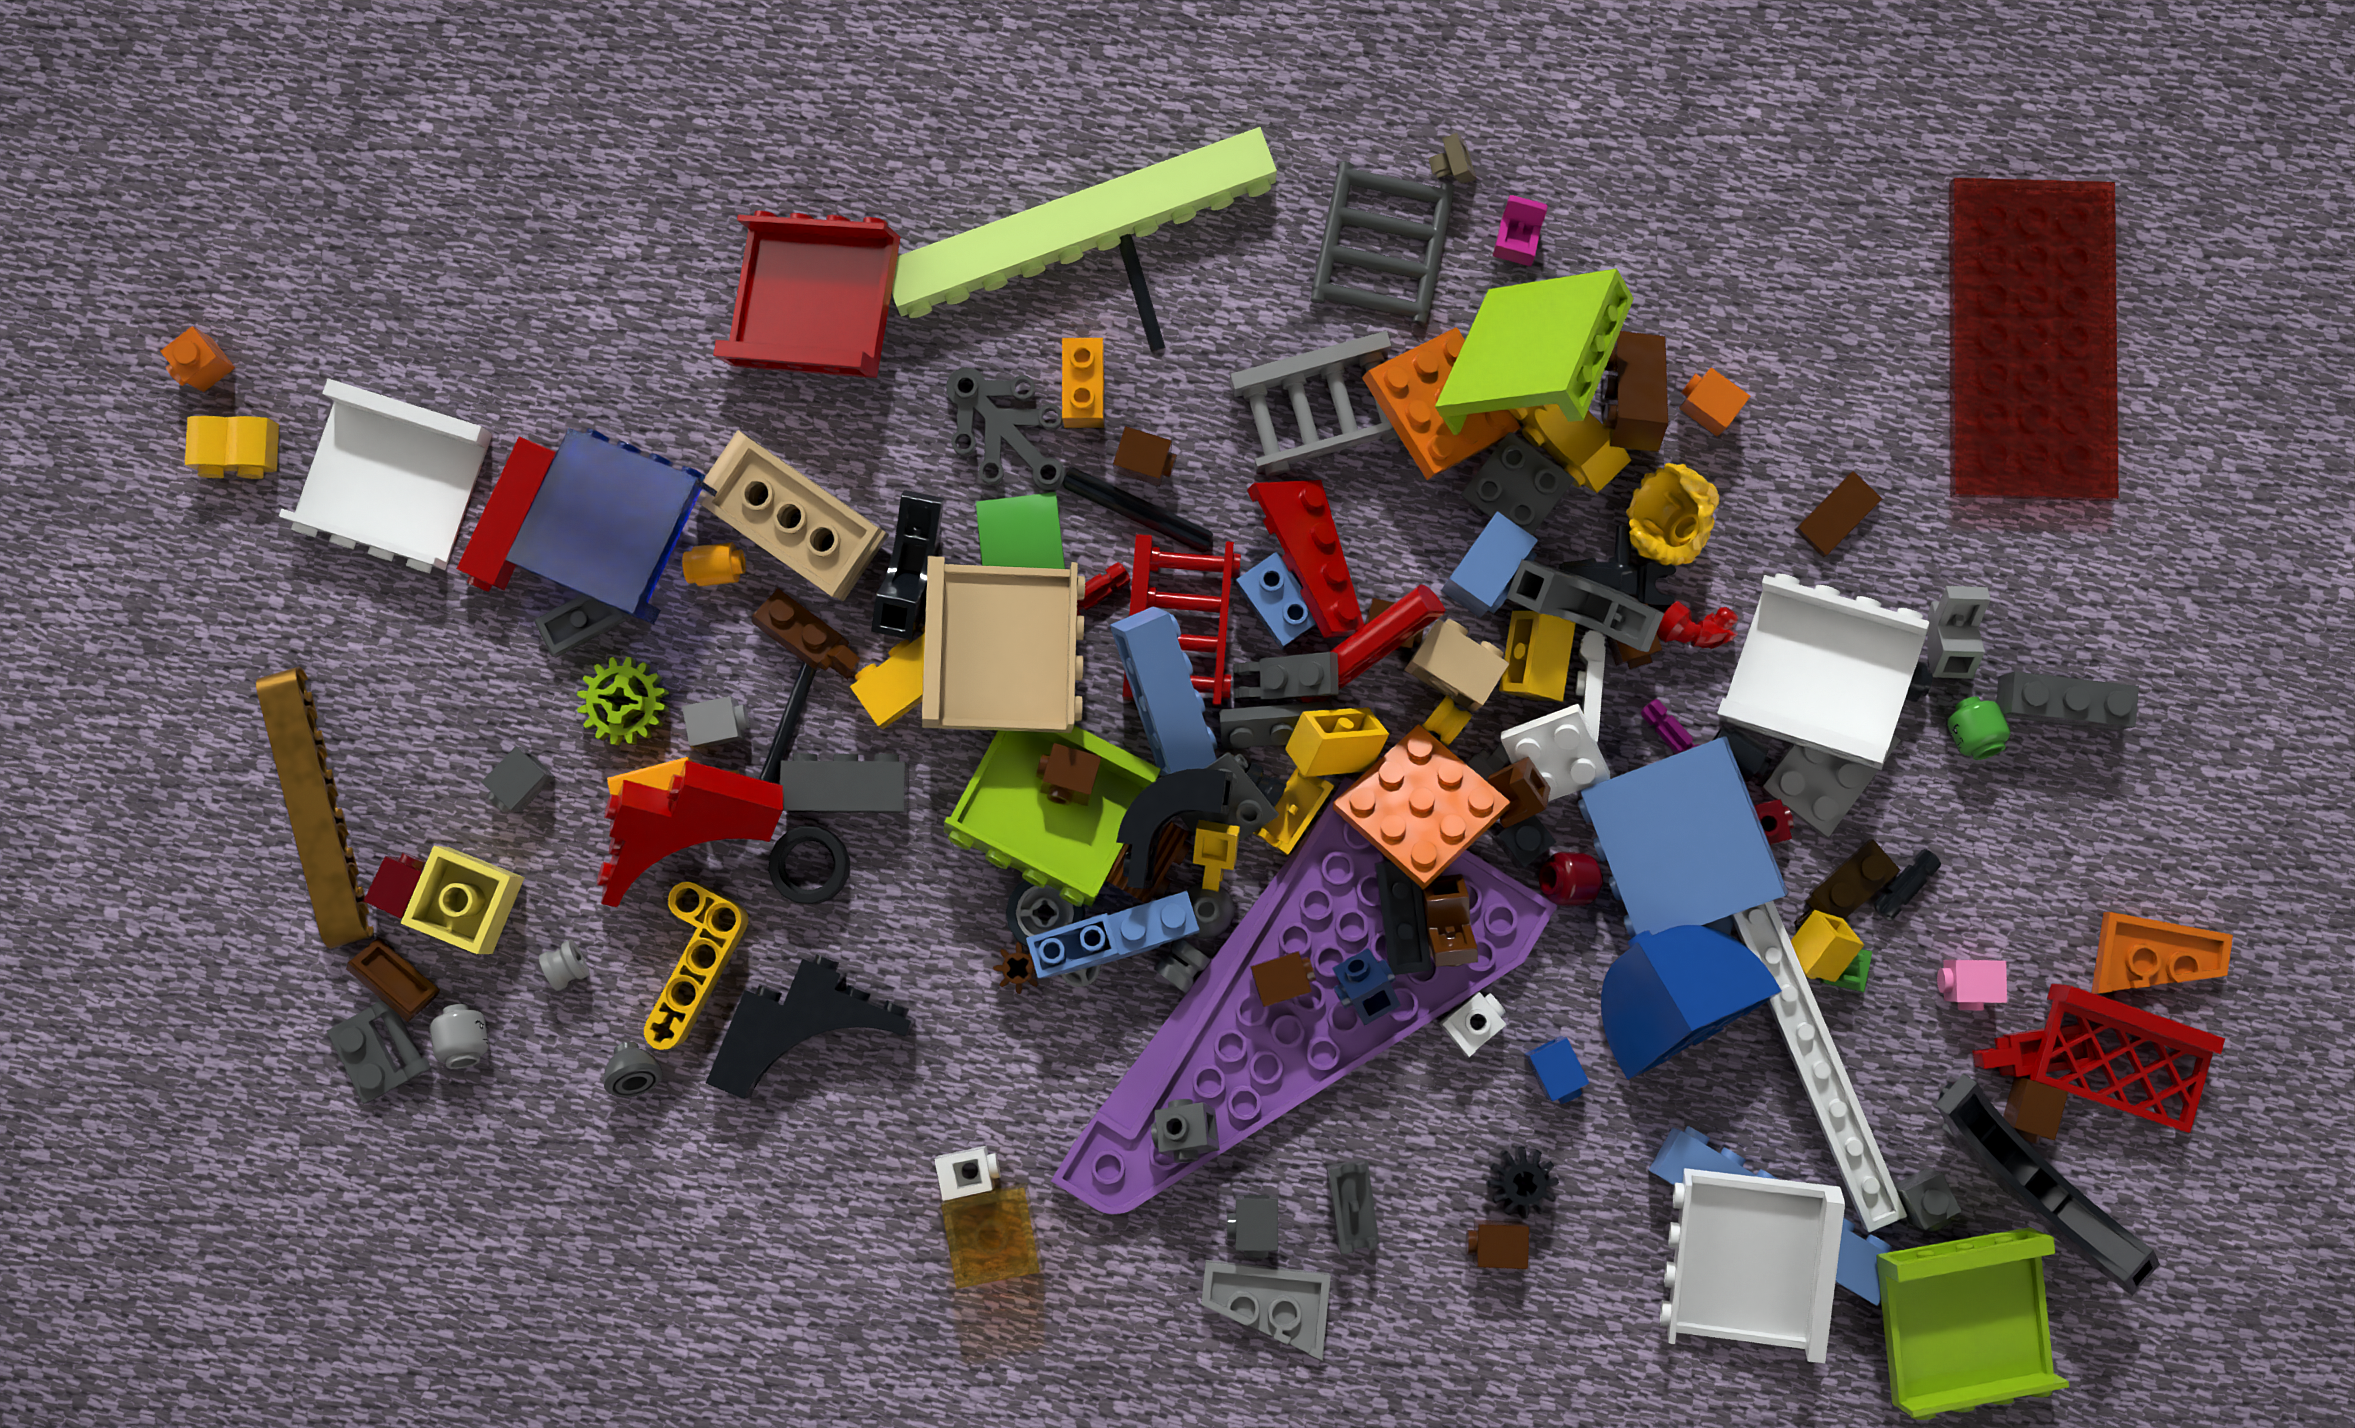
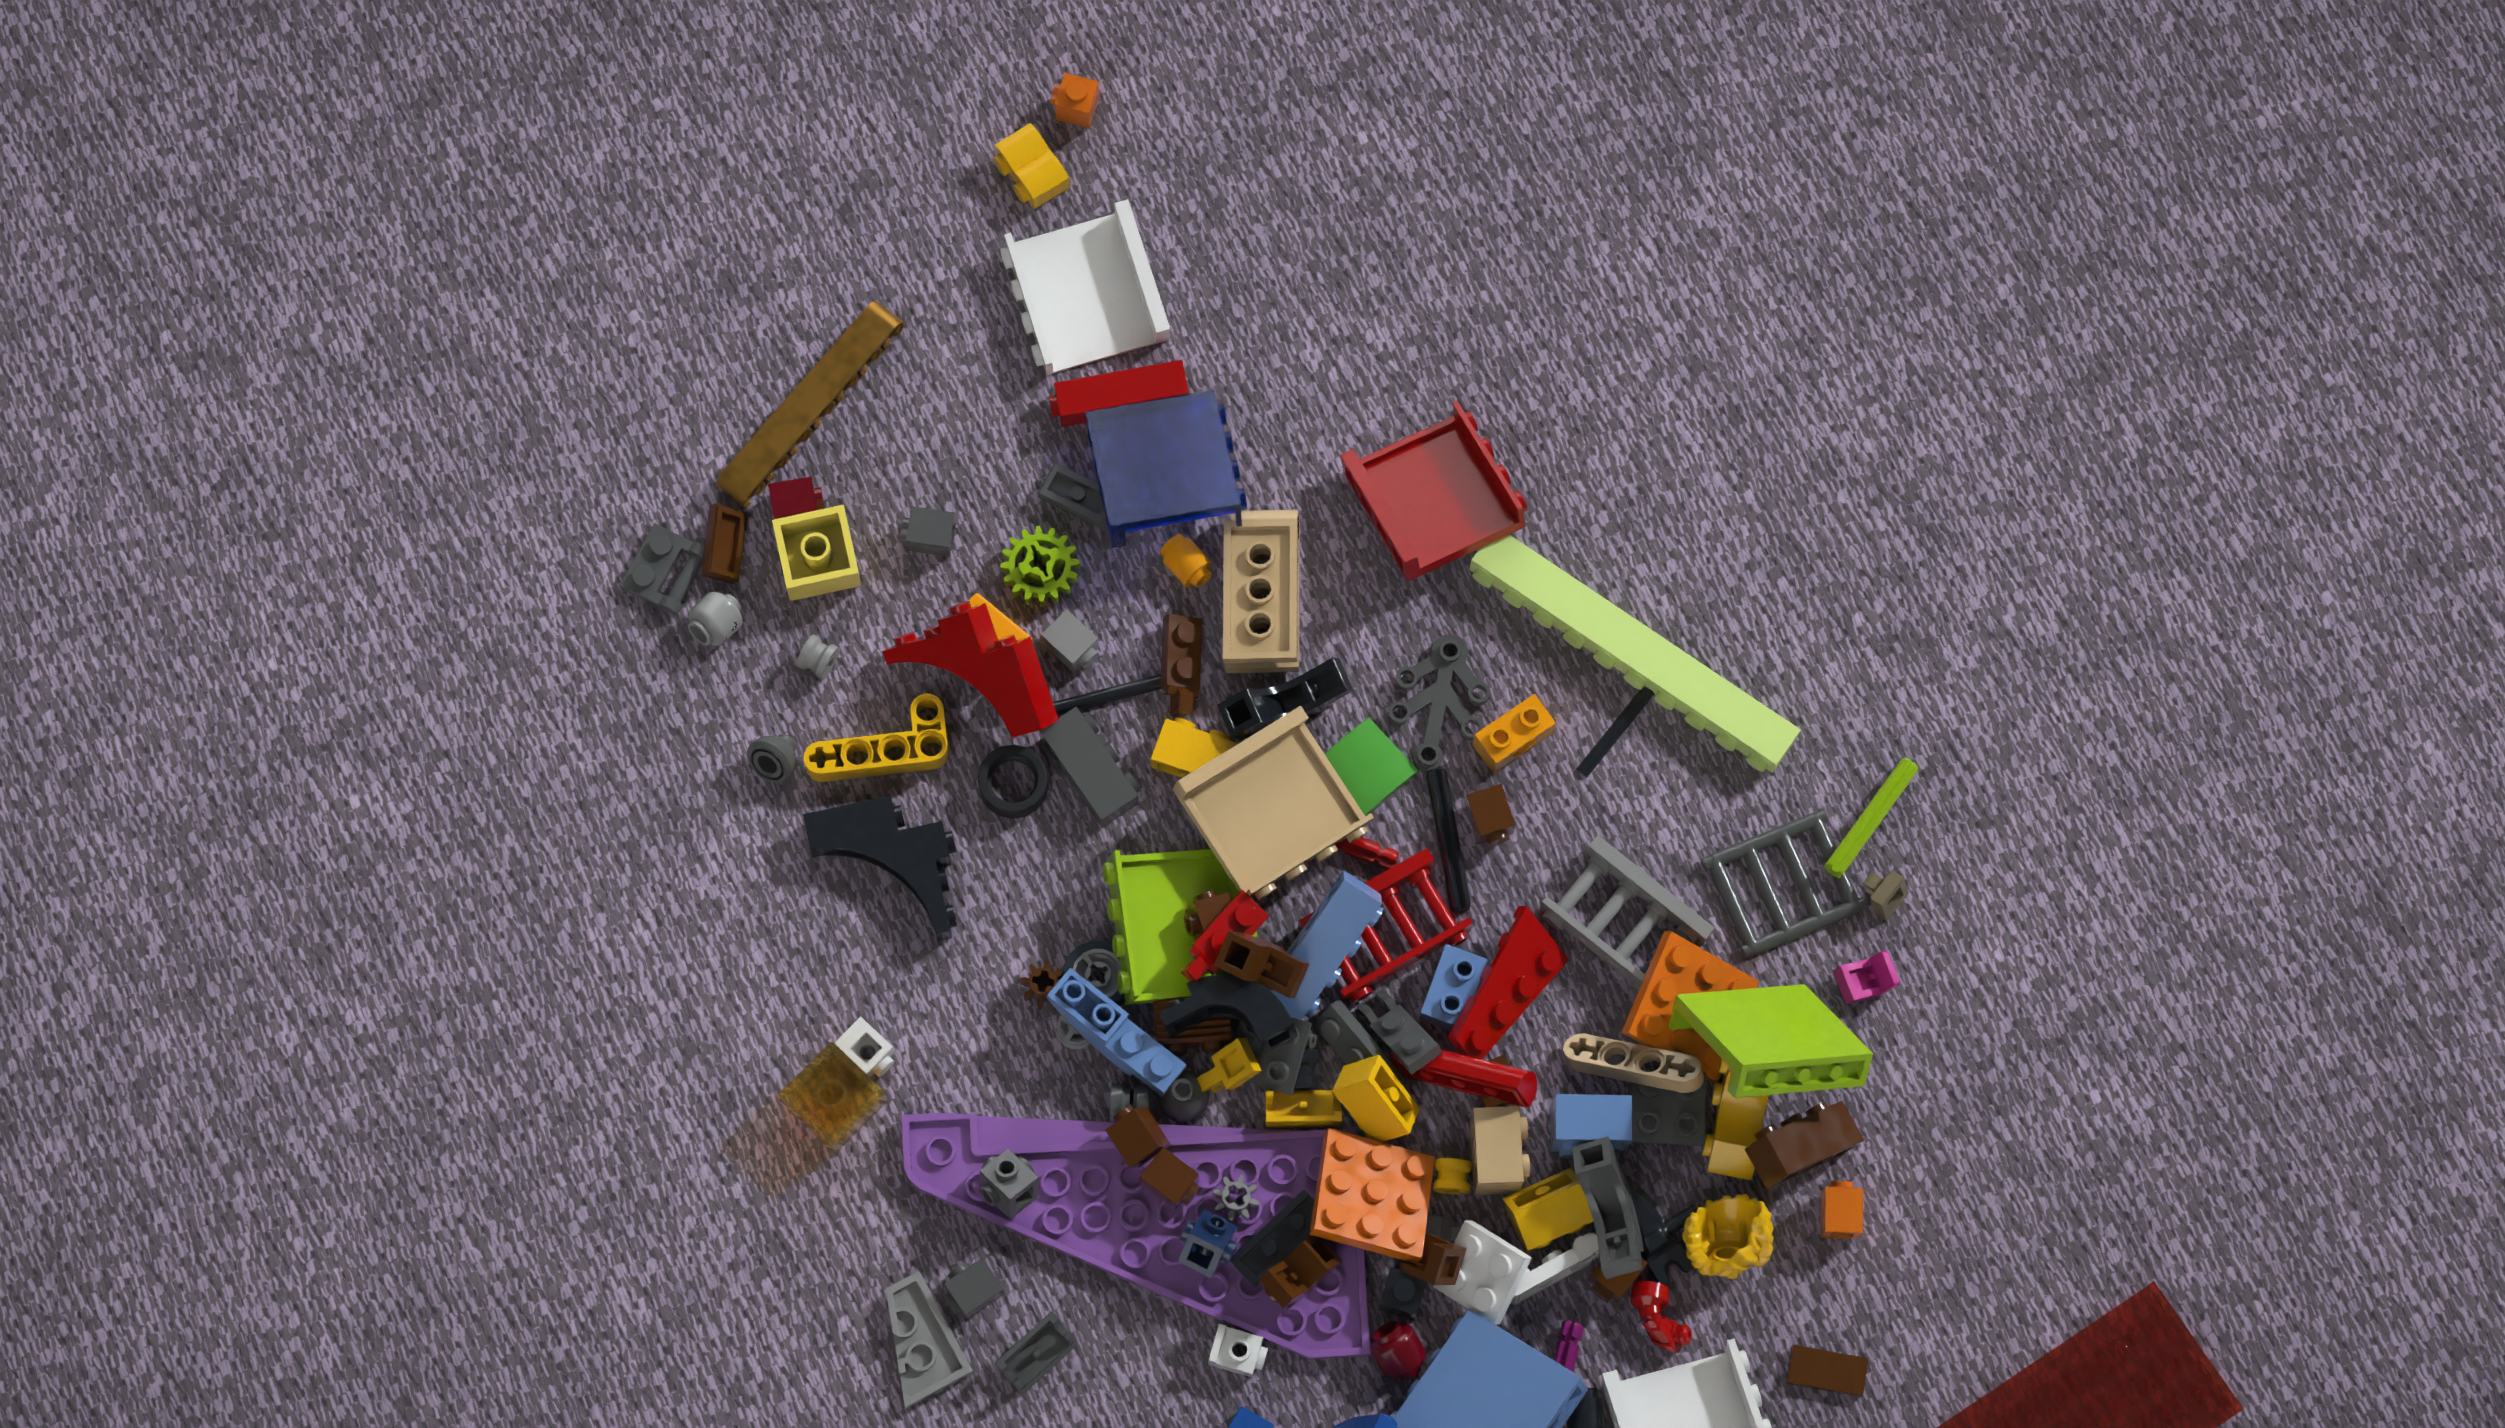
camera: 50 degrees right, 10 degrees down
(1094, 776) = (1239, 915): none -> red hinge
(1142, 758) = (1261, 962): none -> reddish brown brick
(1222, 982) = (1137, 1136): none -> reddish brown brick
(1348, 922) = (1232, 1208): none -> light grey gear
(1378, 124) = (1871, 817): none -> lime axle
(1455, 483) = (1630, 1068): none -> tan beam

